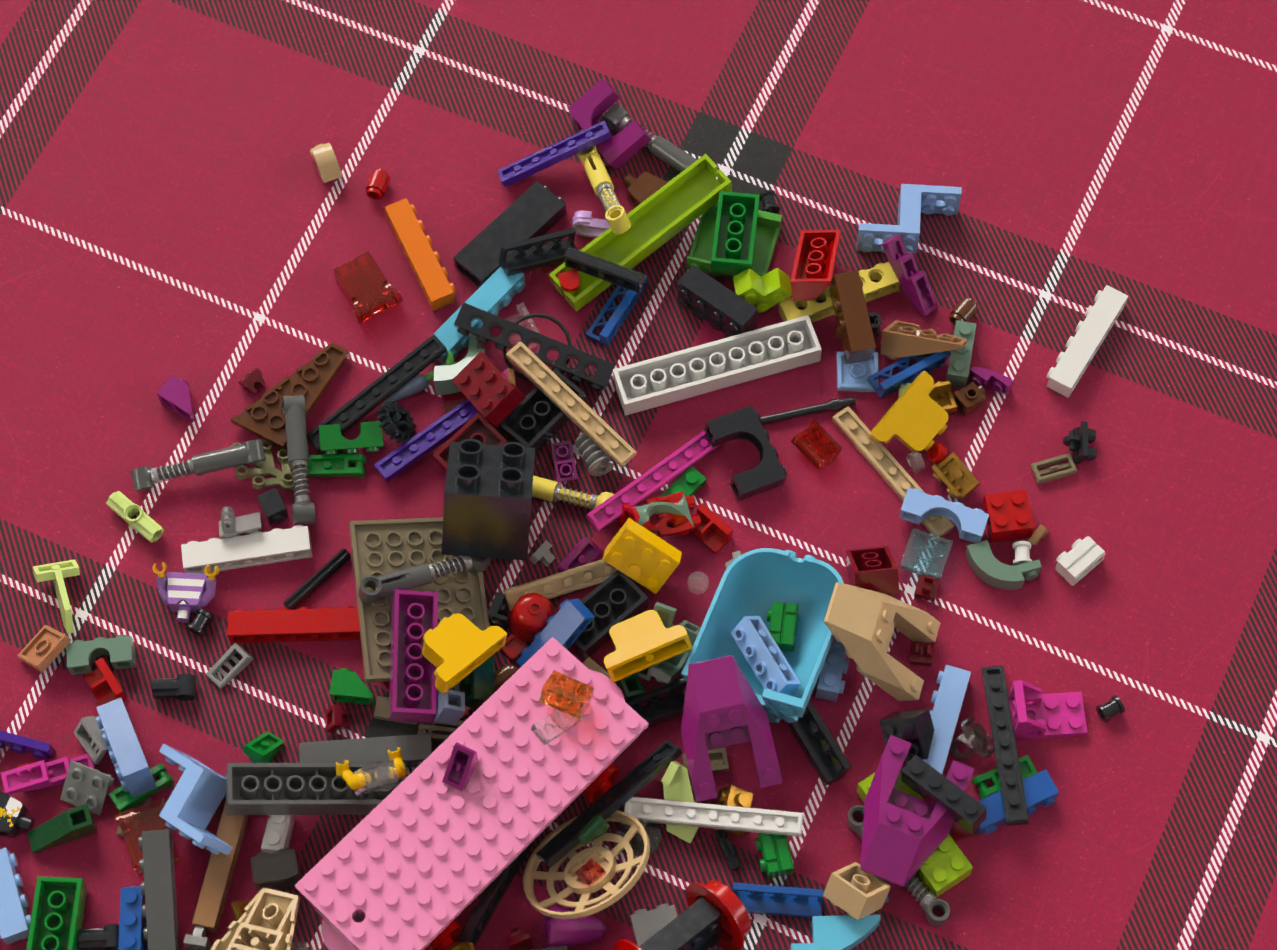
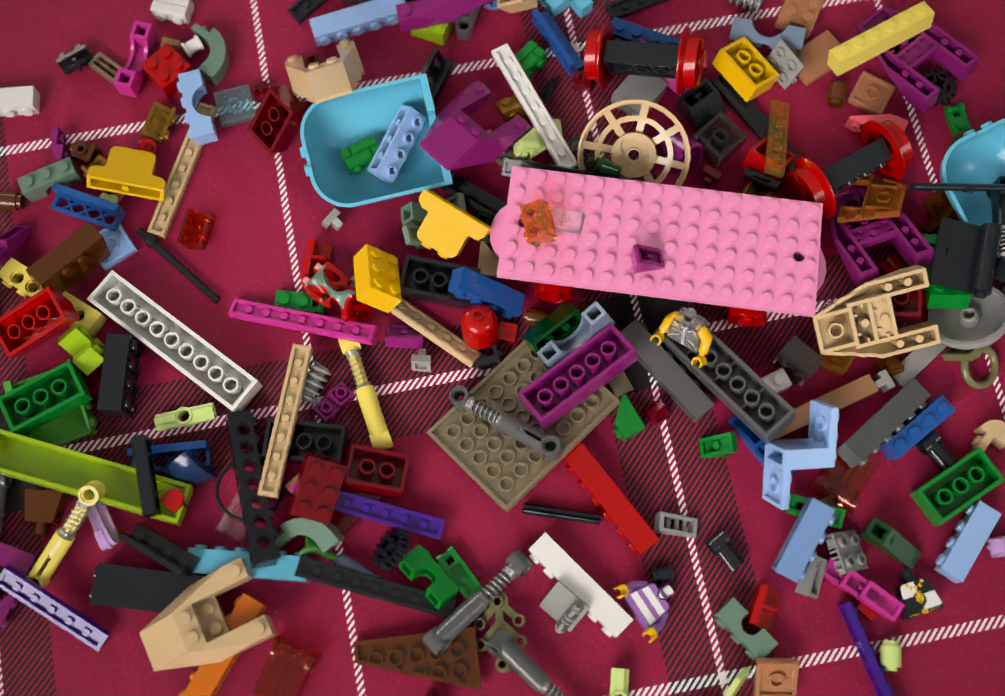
camera: 125 degrees left, 10 degrees up
(273, 506) = (529, 593): black brick -> none
(454, 240) = (195, 629): none -> tan wedge
(459, 648) = (554, 338): yellow brick -> none
(488, 500) = (416, 409): black piece -> none
(590, 308) = (189, 470): none -> dark blue brick
(590, 872) = (638, 147): clear red tile -> none
(646, 328) = (173, 419): none -> yellowish green piece
(698, 582) = (364, 238): clear tile -> none
(746, 425) = (239, 249): black arch -> none
(907, 340) = (60, 212): medium nougat wedge -> none
(913, 727) = (382, 29): black slope -> none
(915, 461) = (164, 156): clear tile -> none
(1053, 508) = (130, 77): none -> dark pink arch

